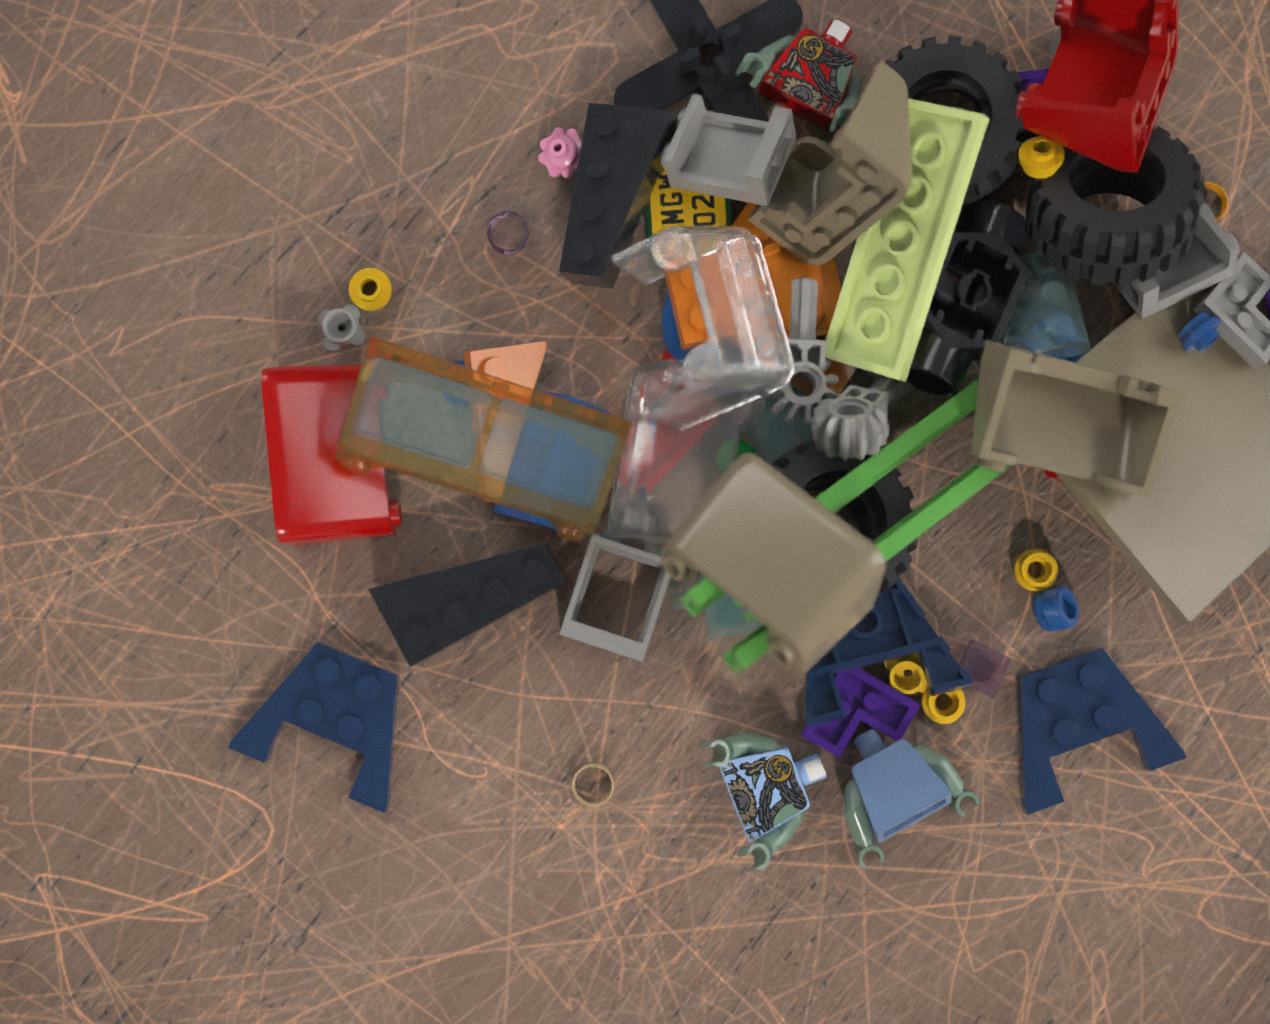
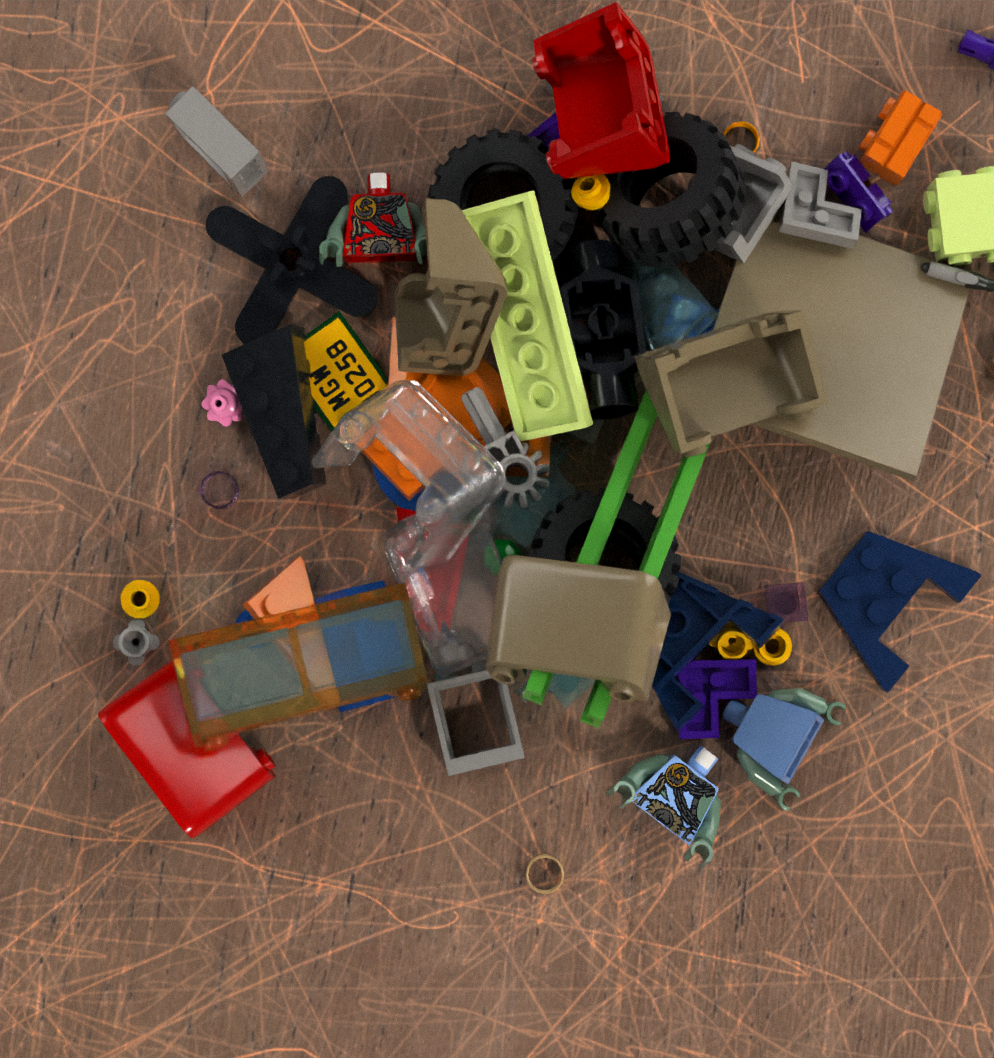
camera: 25 degrees left, 0 degrees up
(341, 702) = (312, 930): dark blue wing -> none
(456, 602) = (354, 801): black wedge -> none
(728, 153) = (352, 328): light grey panel -> none
(855, 420) = (572, 477): light grey gear -> none
(1048, 565) = (793, 501): yellow plate -> none
(1056, 609) = (814, 522): blue tile -> none
(1200, 333) = (794, 247): blue plate -> none

